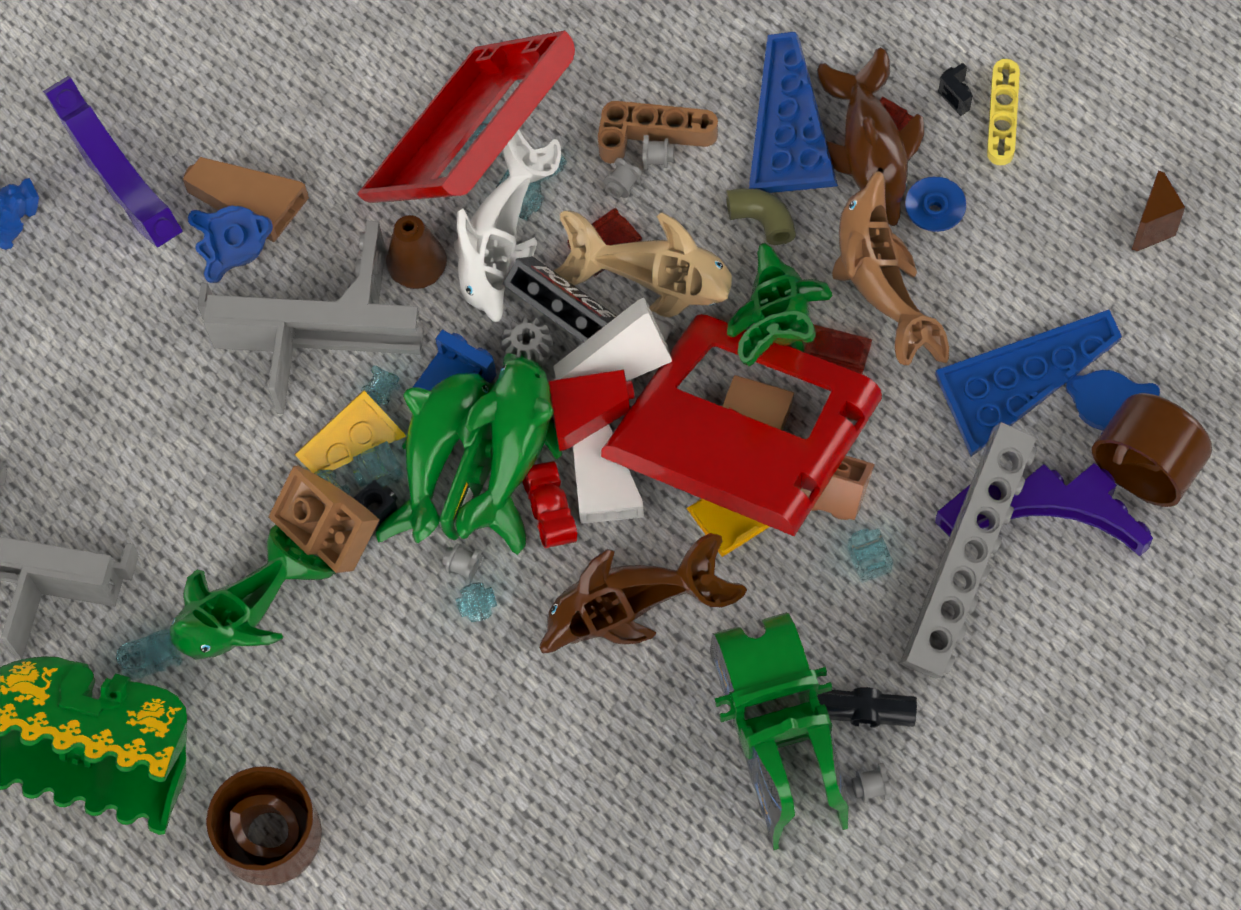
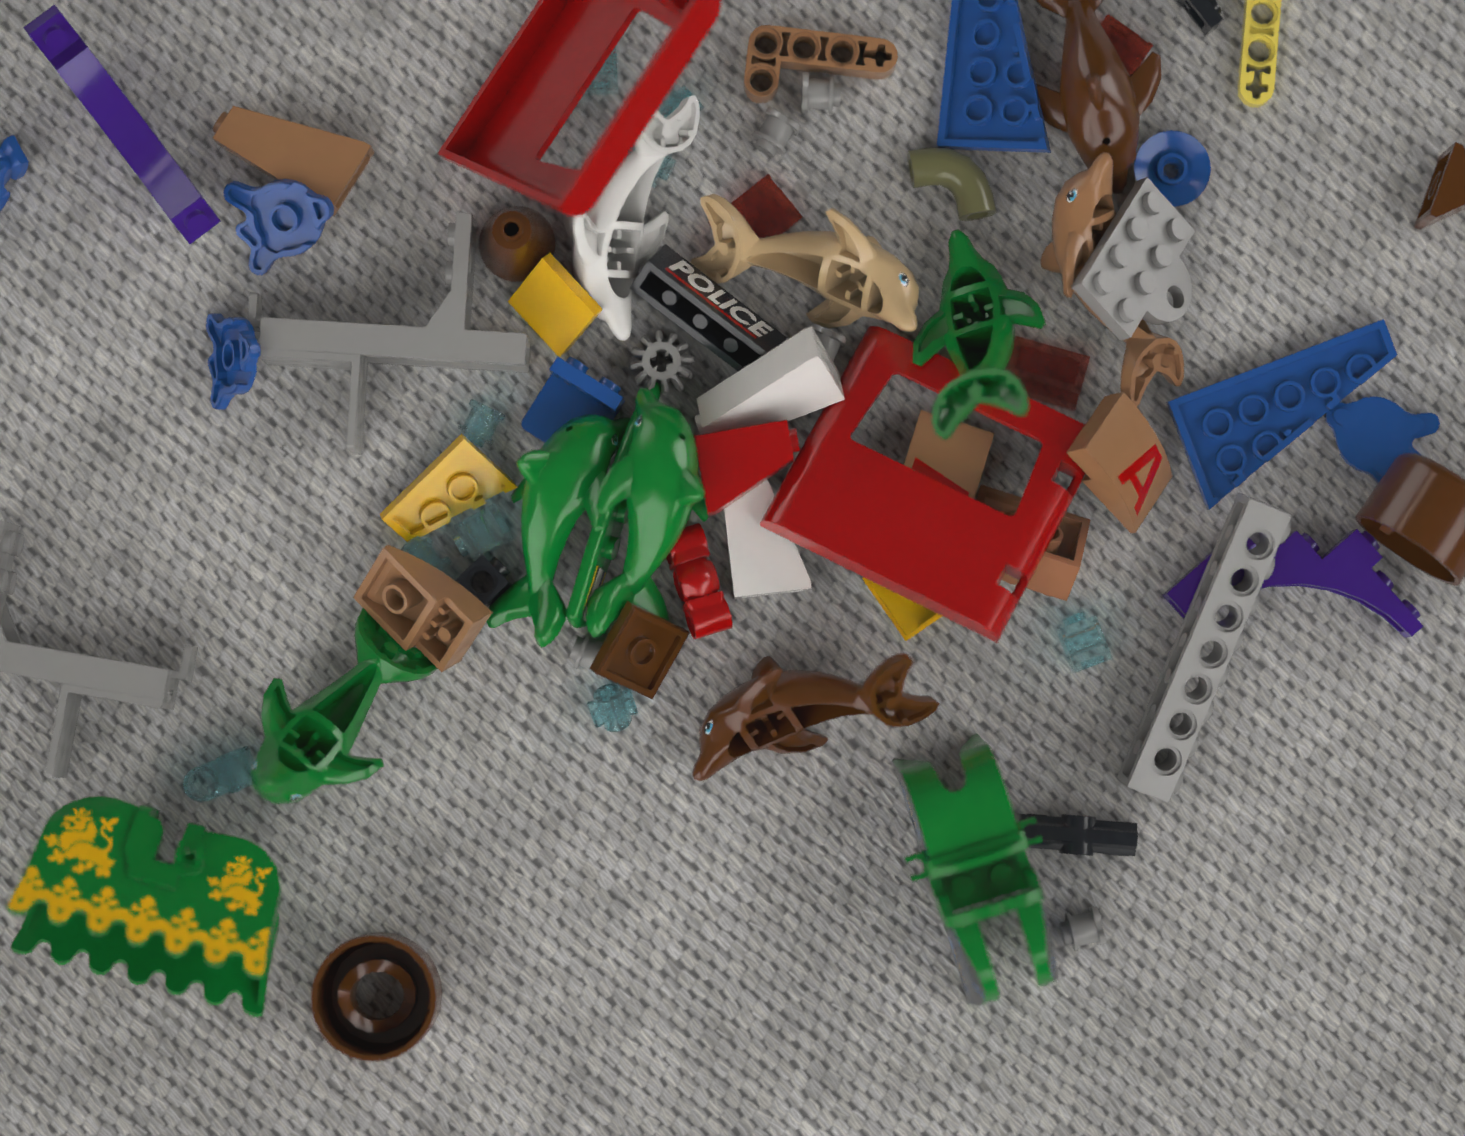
camera: 10 degrees left, 20 degrees up
(185, 335) = (233, 357): none -> blue tile
(443, 296) = (554, 305): none -> yellow tile
(500, 554) = (639, 650): none -> reddish brown tile
(898, 407) = (1122, 460): none -> medium nougat slope
(909, 263) = (1138, 264): none -> light grey plate

